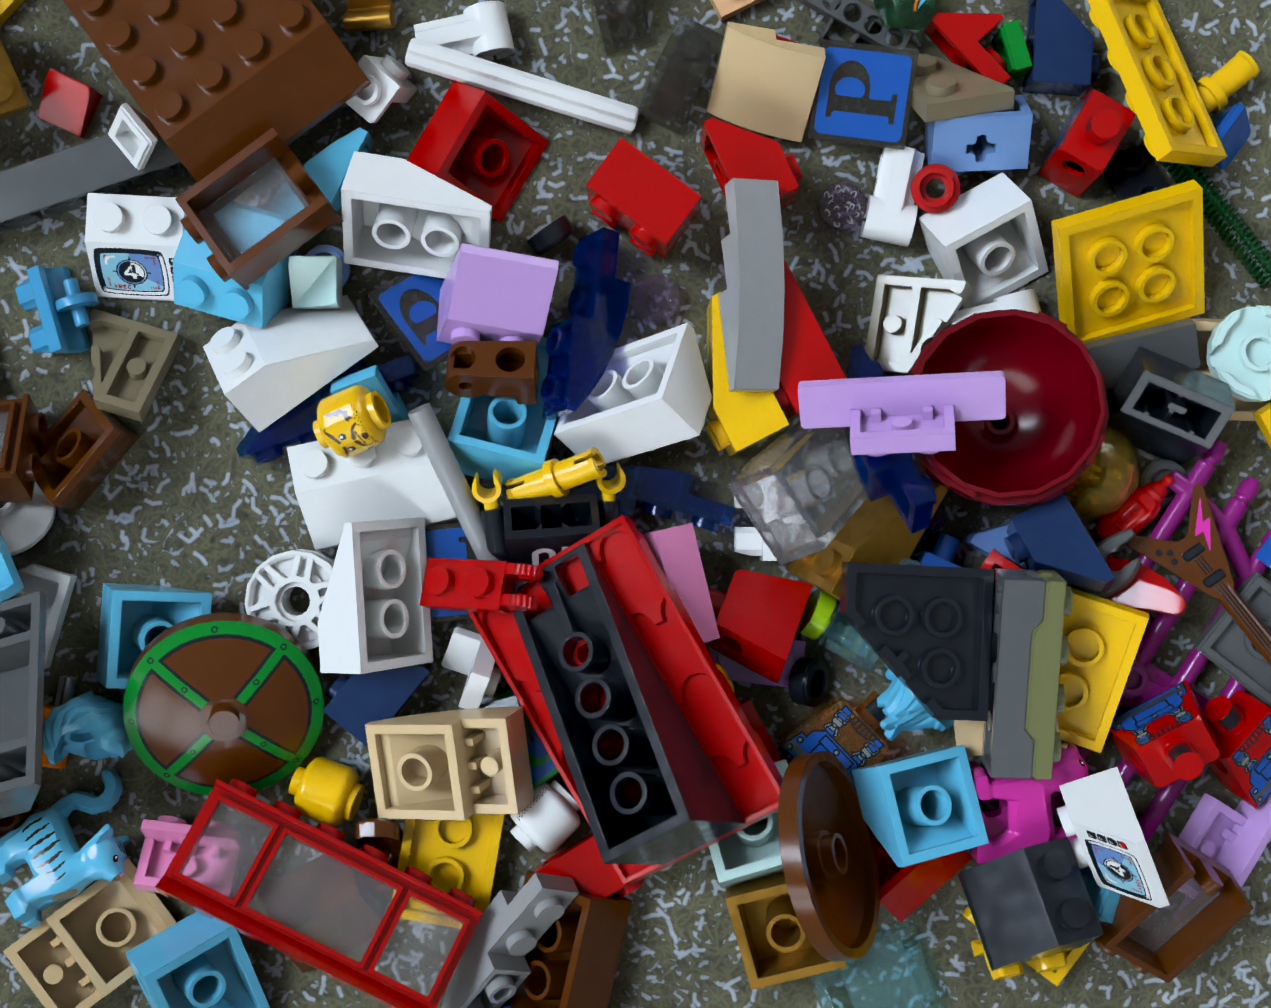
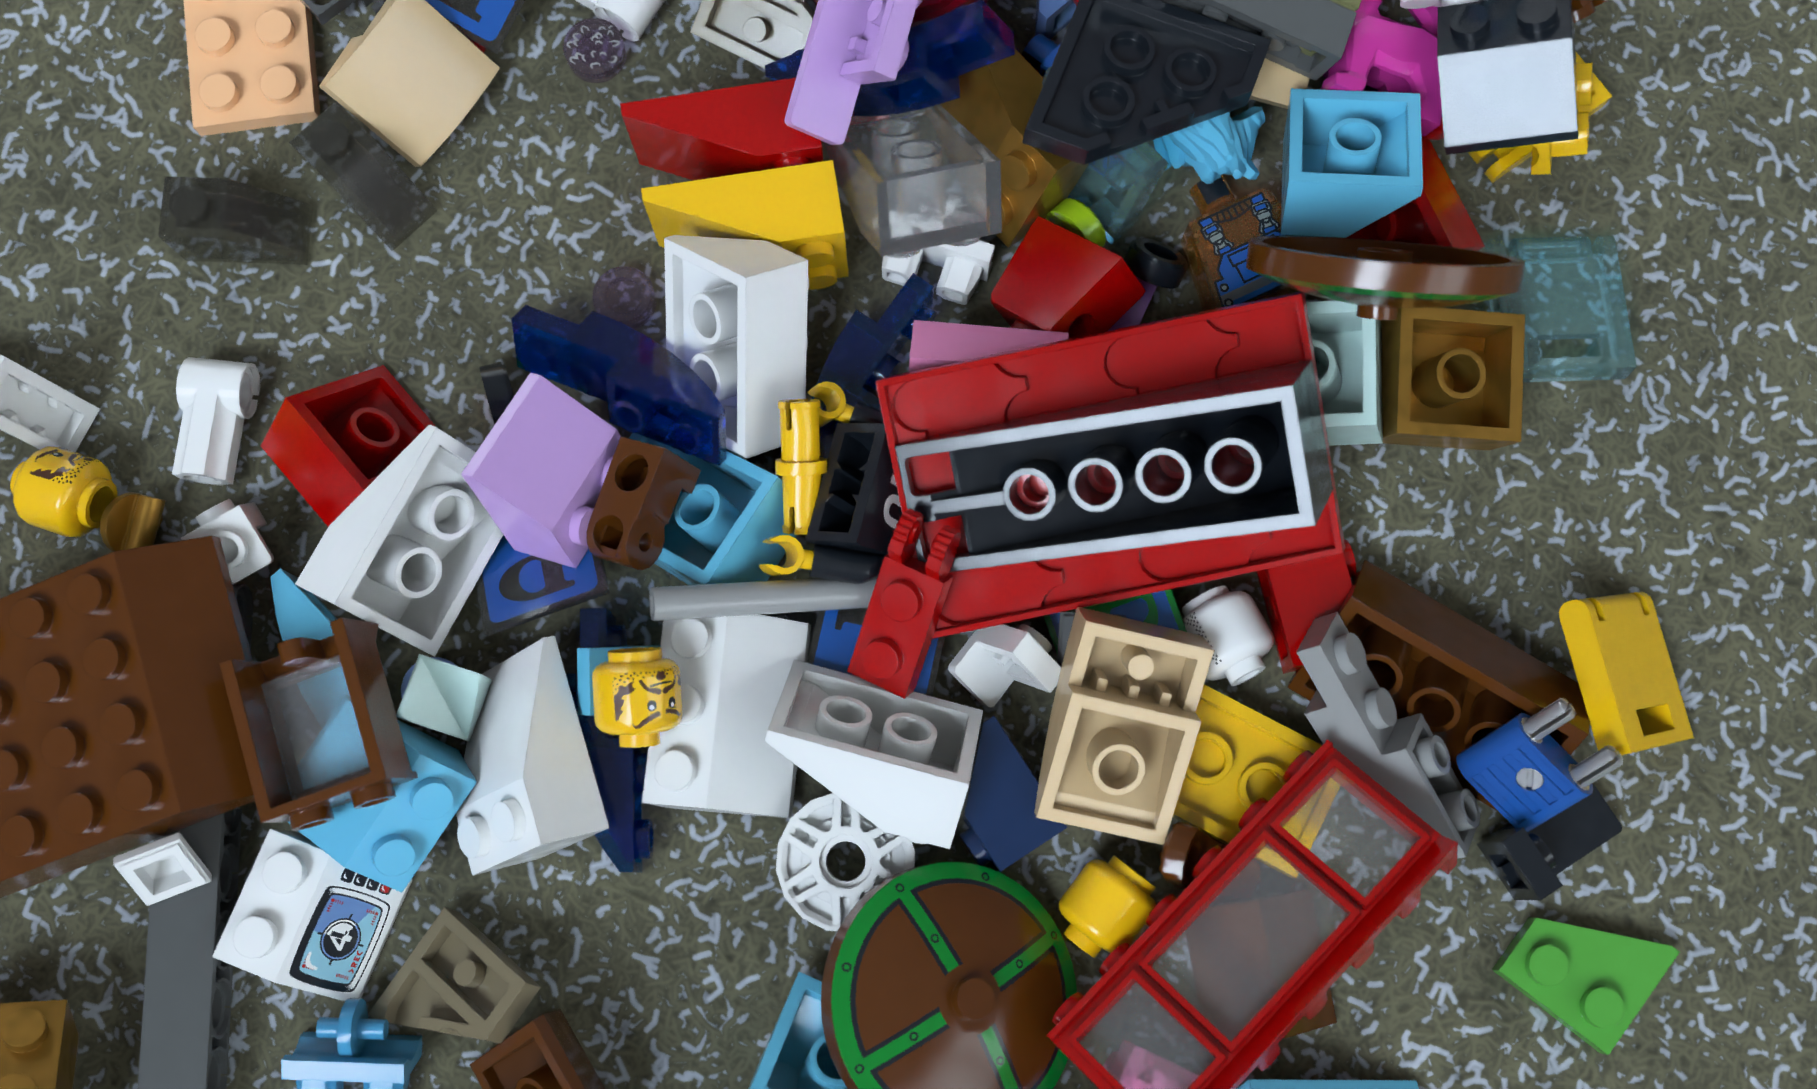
camera: 75 degrees left, 10 degrees down
(67, 103) = (88, 956): slope -> none
(521, 86) = (299, 367): white axle -> none
(642, 200) = (496, 259): red brick -> none
(747, 155) = (506, 127): red slope -> none
(755, 286) = (666, 145): light grey slope -> none

